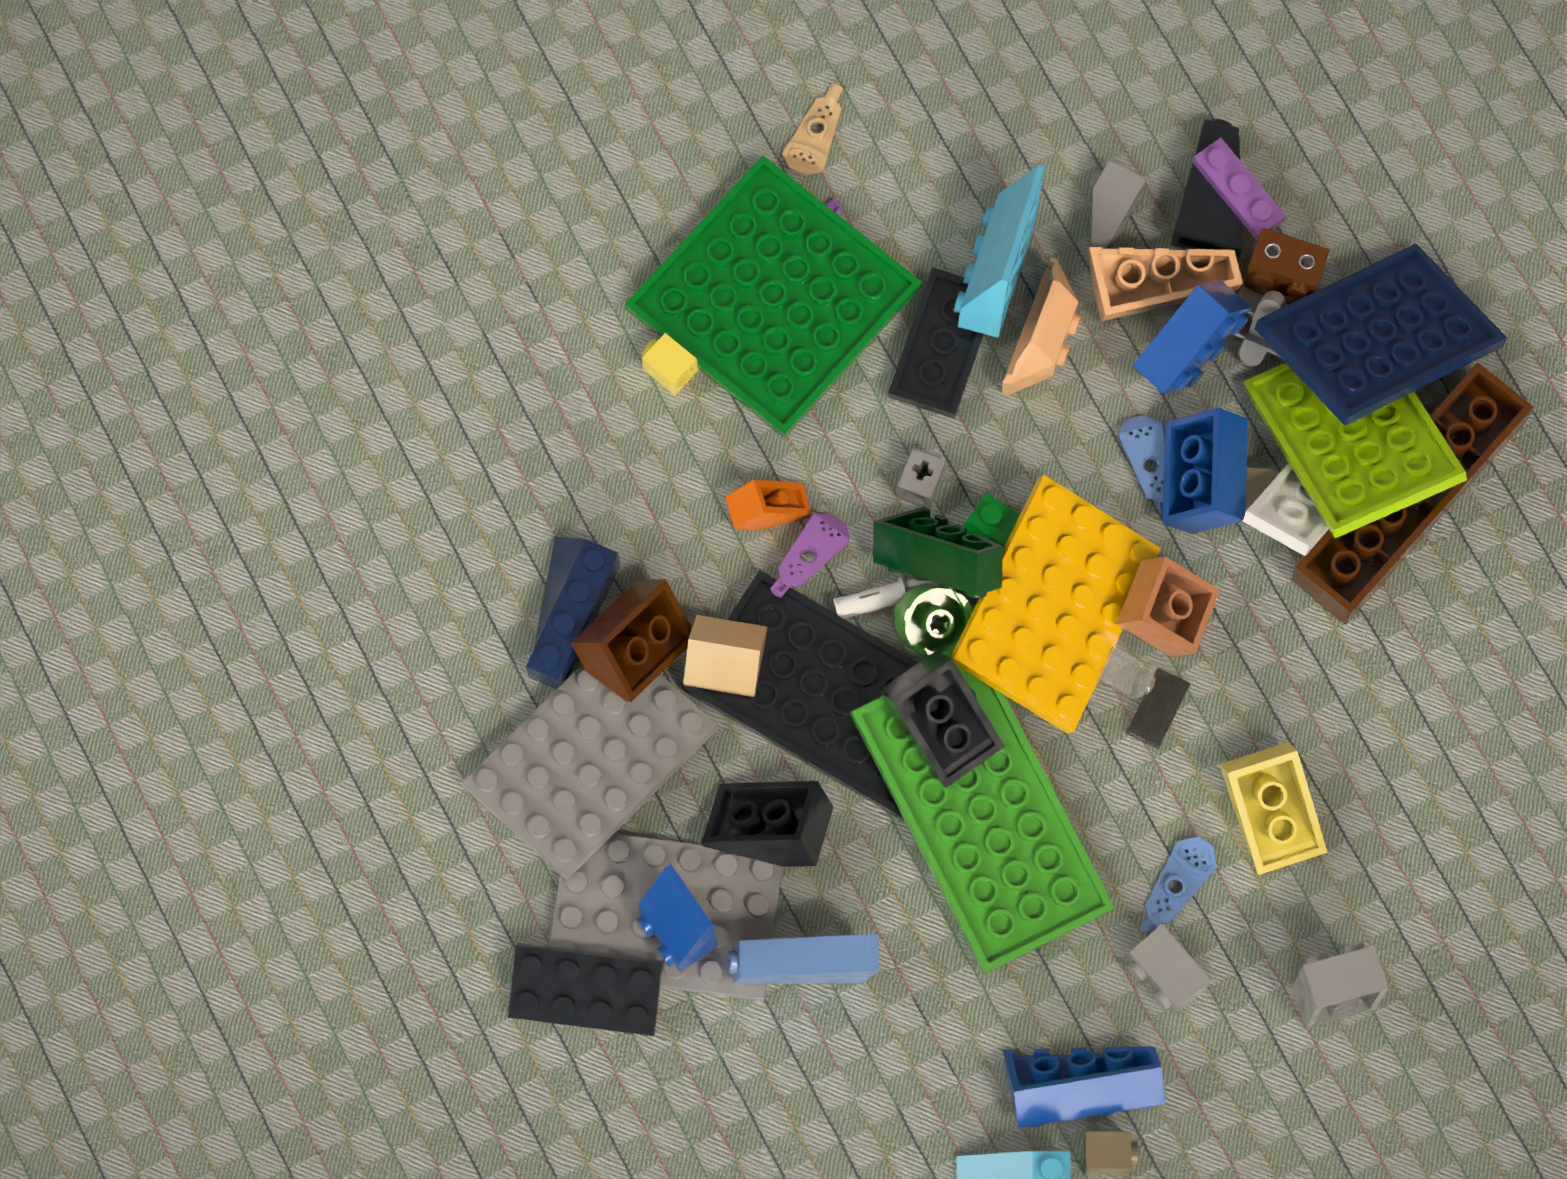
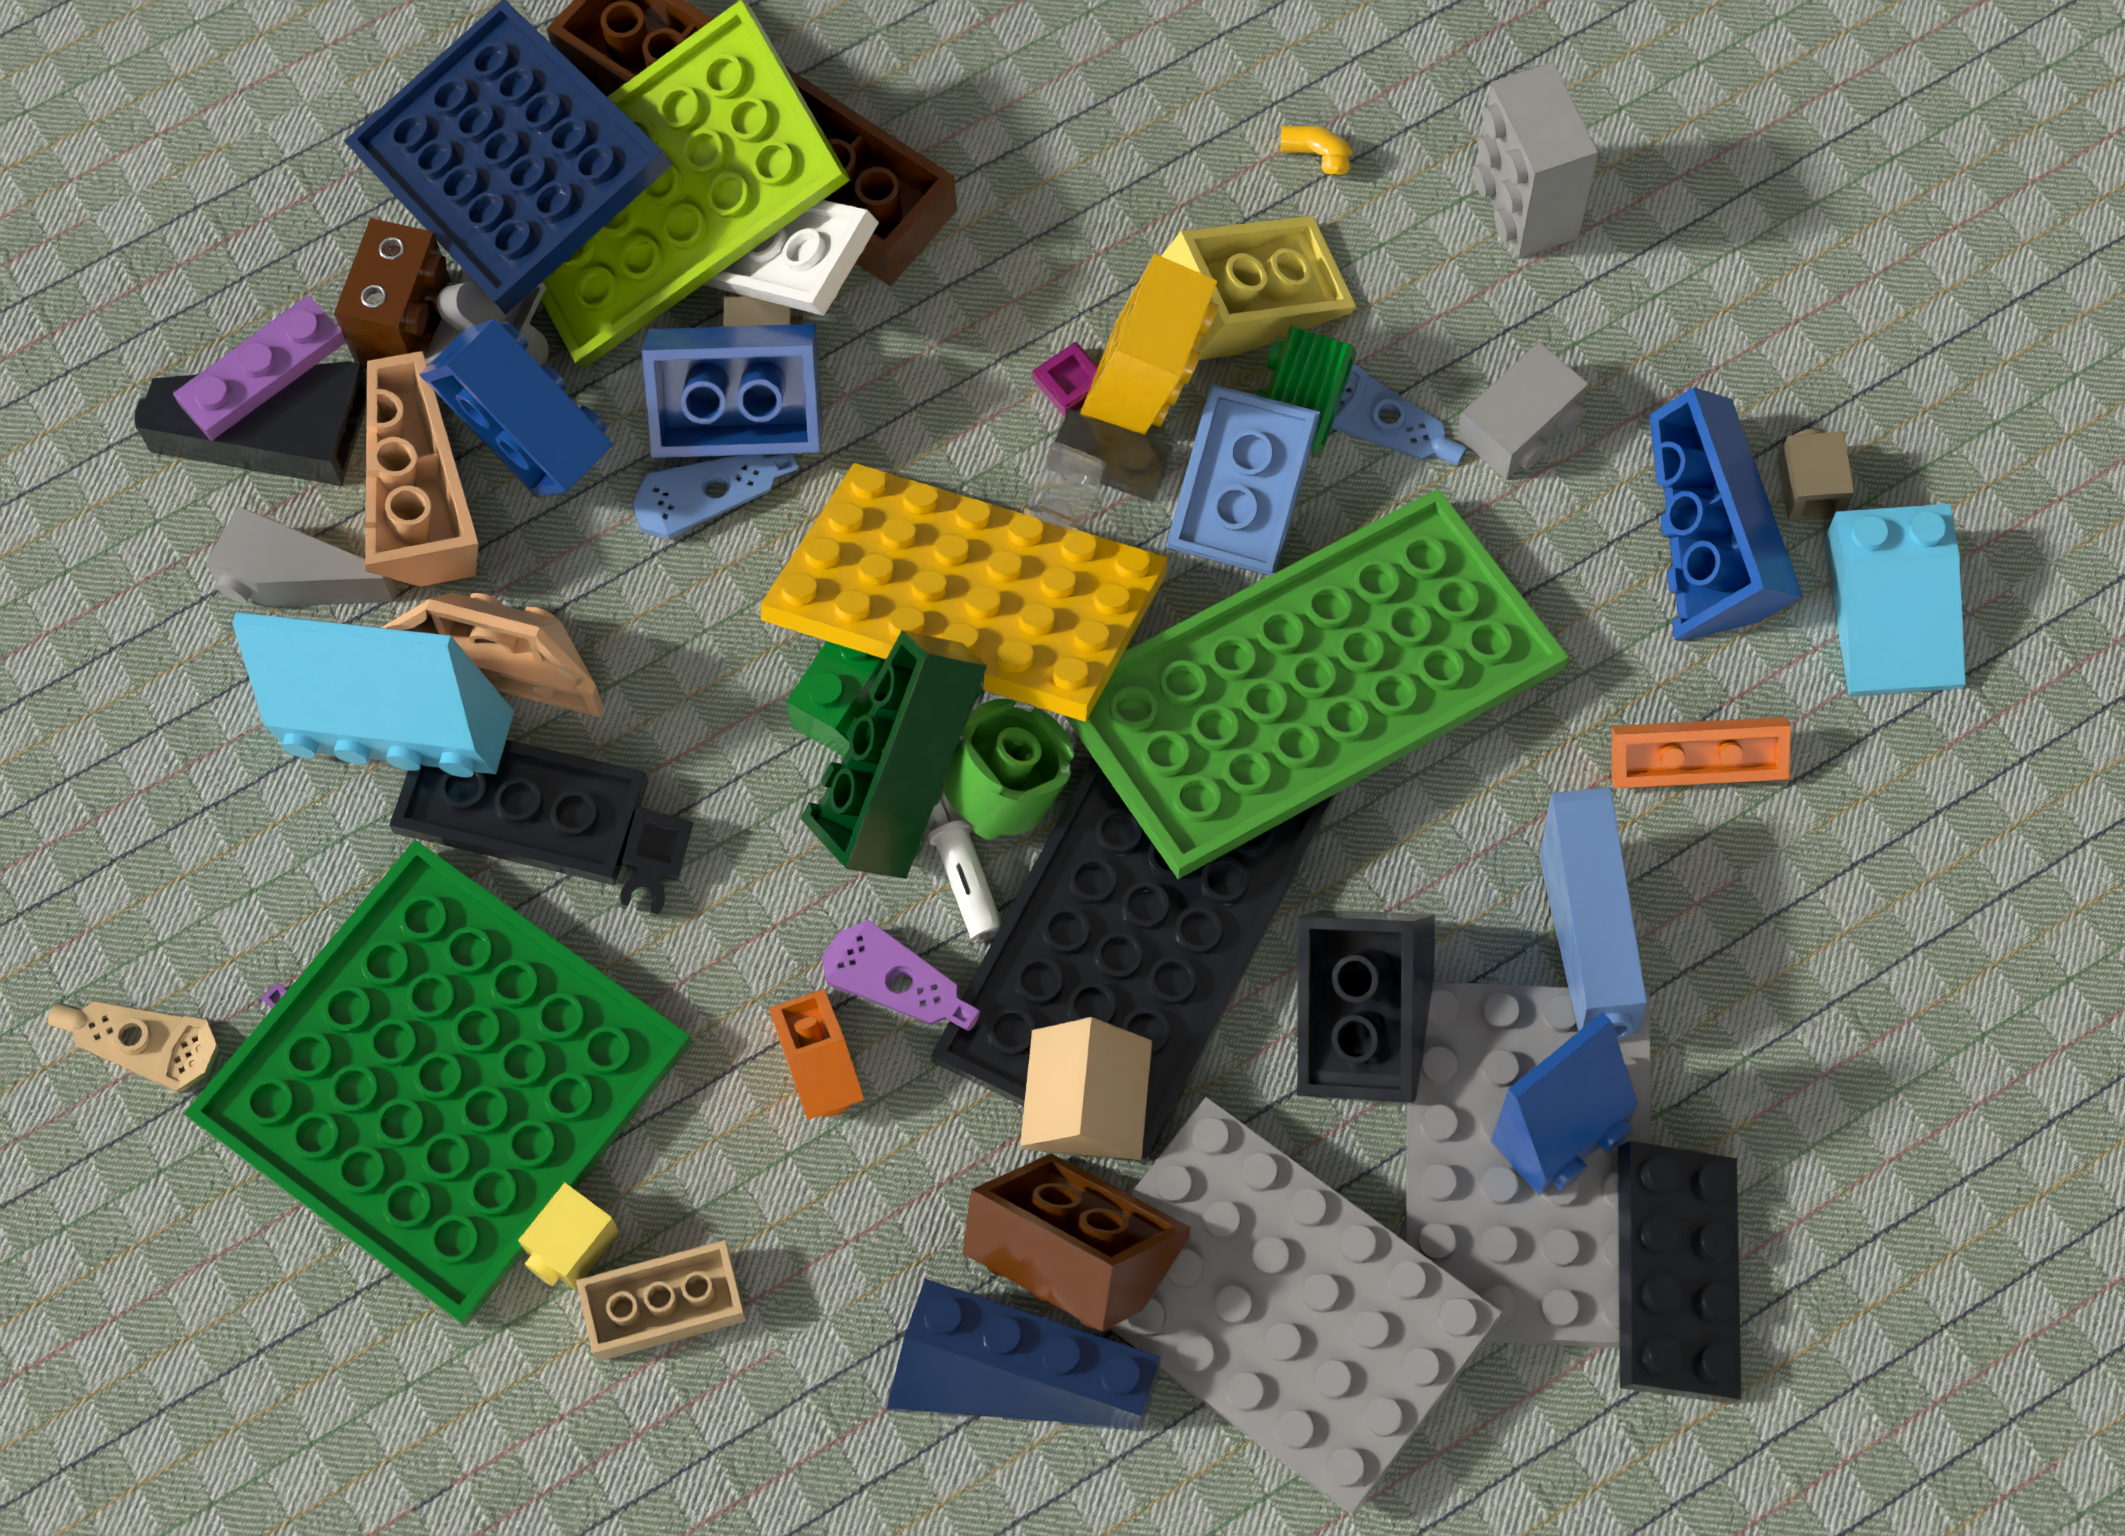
camera: 95 degrees left, 5 degrees down
(627, 414) = (660, 1301): none -> tan piece
(904, 419) = (655, 850): none -> black plate
(918, 1050) = (1700, 752): none -> orange plate
(921, 491) = (766, 834): light grey brick -> none
(941, 717) = (1177, 728): black slope -> none
(1126, 783) = (1243, 480): none -> medium blue tile
(1168, 606) = (957, 431): nougat brick -> none
(1187, 827) = (1311, 375): none -> green brick
(1210, 723) = (1152, 347): none -> yellow brick
(1215, 688) = (1066, 378): none -> magenta tile
(1381, 865) = (1318, 140): none -> yellow arm

